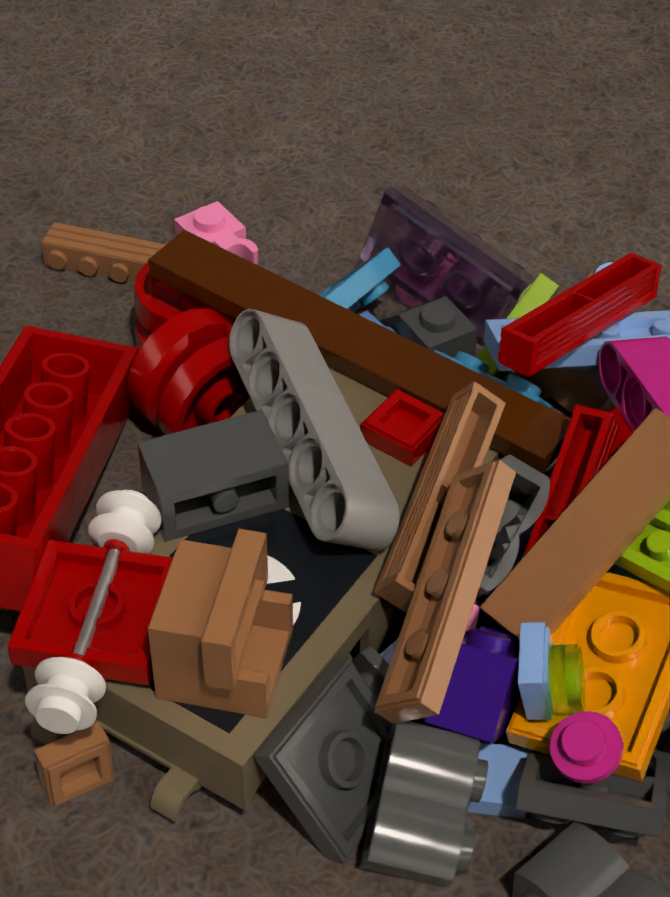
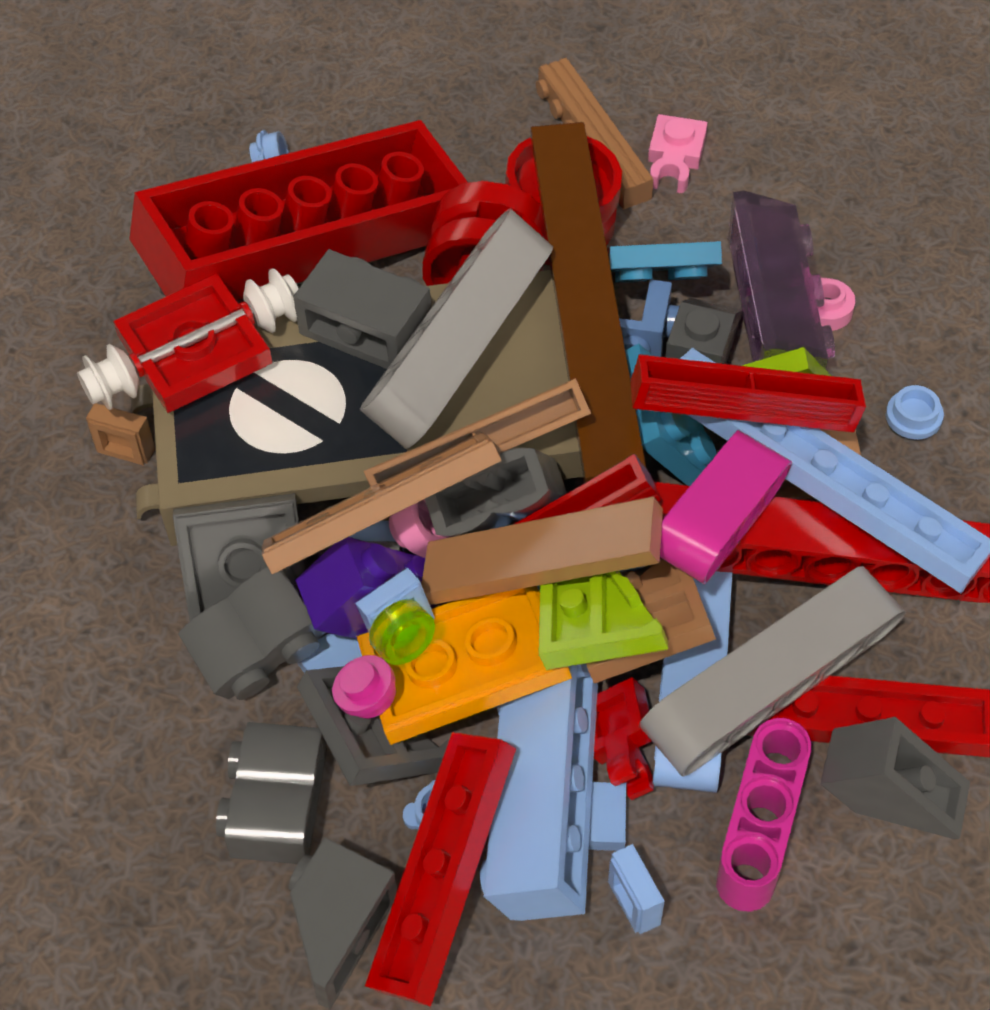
camera: 50 degrees right, 10 degrees up
(218, 630) = (226, 409): medium nougat plate -> none
(402, 427) = (533, 373): red tile -> none

